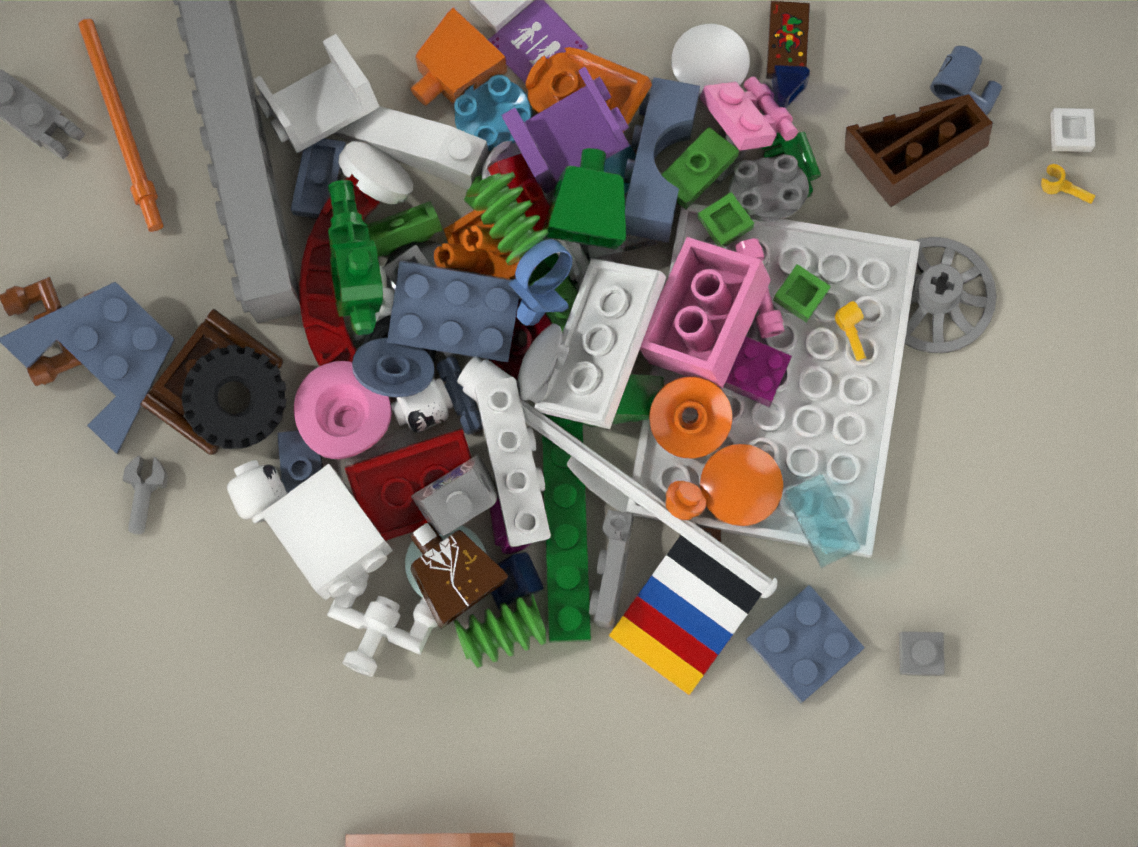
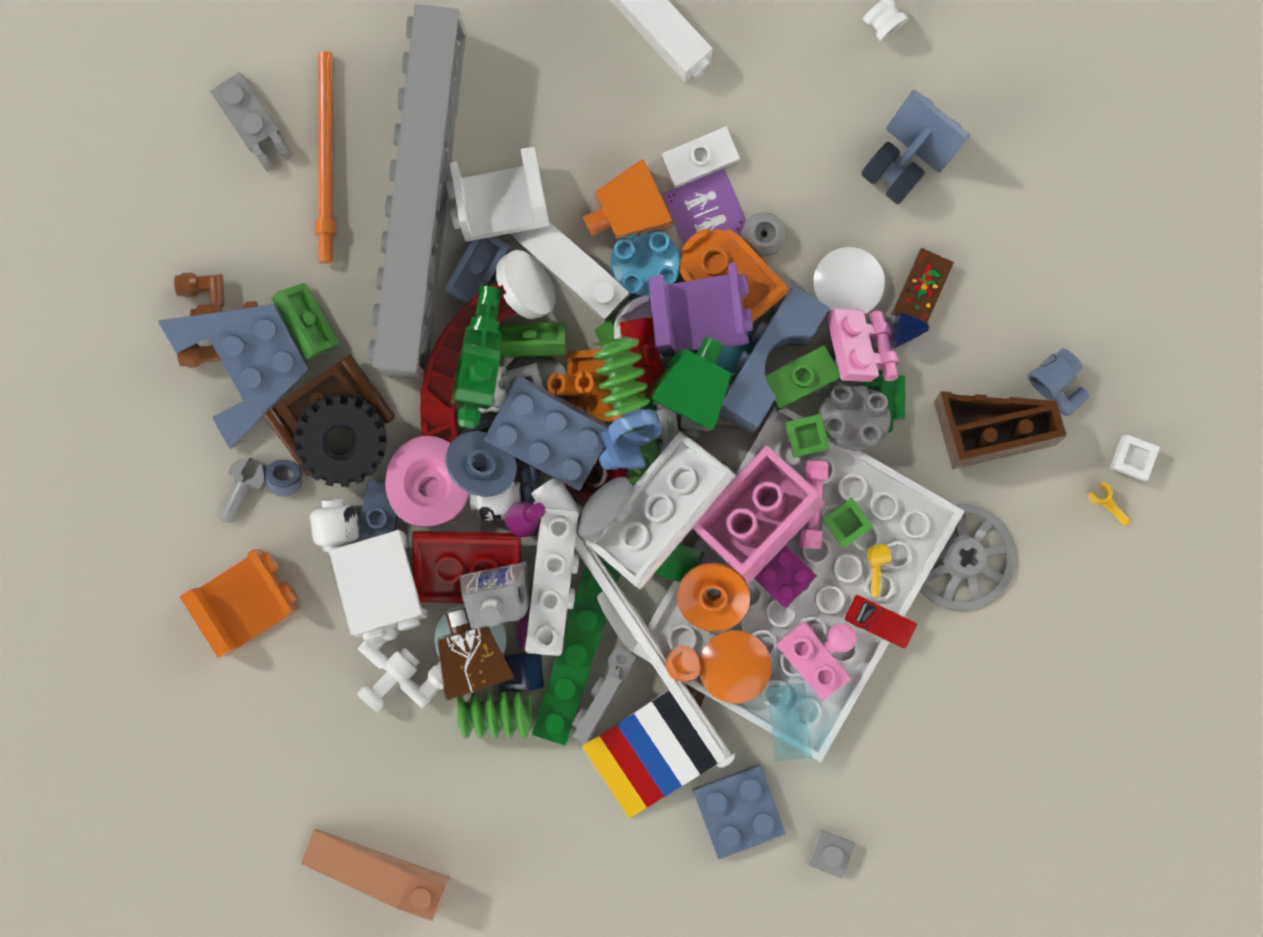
camera: 20 degrees right, 10 degrees up
(155, 292) = (305, 320): none -> bright green plate
(184, 612) = (241, 603): none -> orange panel
(186, 475) = (280, 487): none -> sand blue piece
(460, 406) = (524, 518): none -> magenta cone
(605, 31) = (772, 226): none -> light grey plate
(823, 445) = (815, 659): none -> bright pink plate
(877, 385) = (880, 621): none -> red sticker

